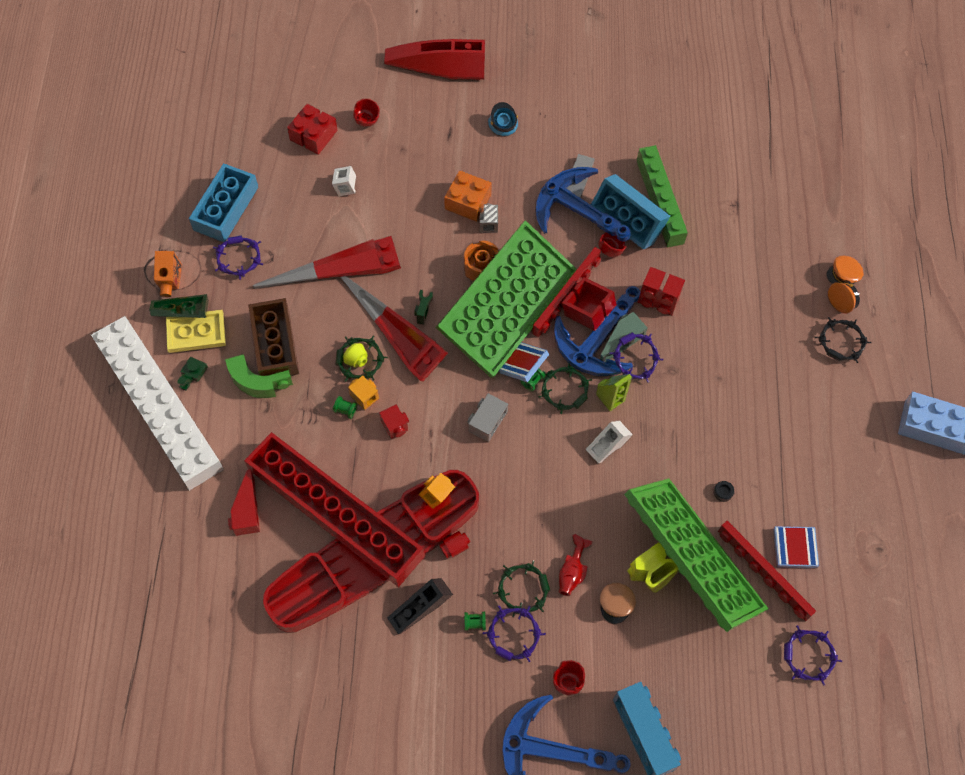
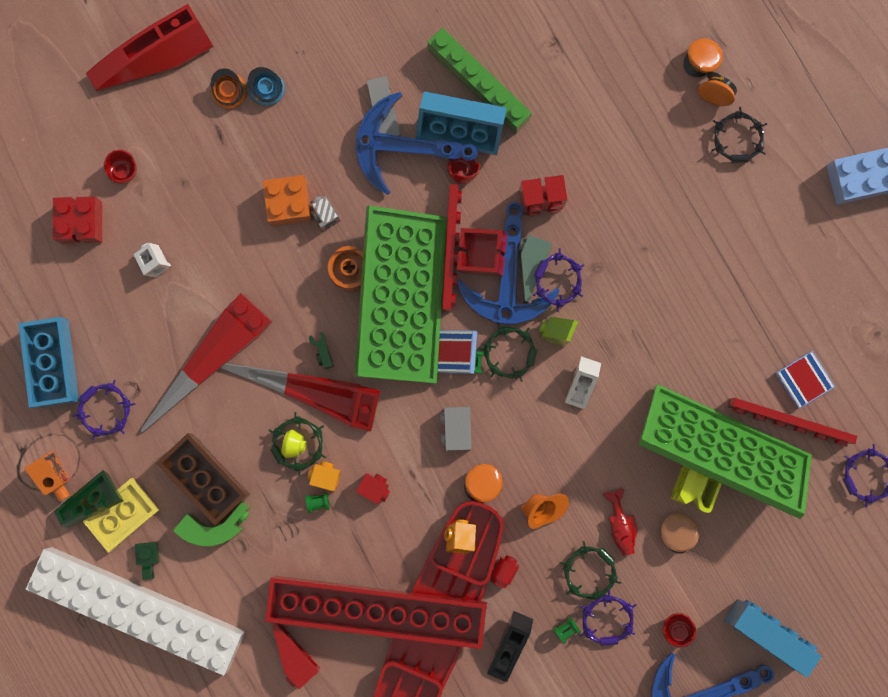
camera: 30 degrees left, 20 degrees up
(475, 107) = (227, 88): none -> orange piece
(482, 467) = (483, 483): none -> orange piece
(519, 516) = (544, 510): none -> orange piece
(723, 491) = (712, 364): black tile -> none

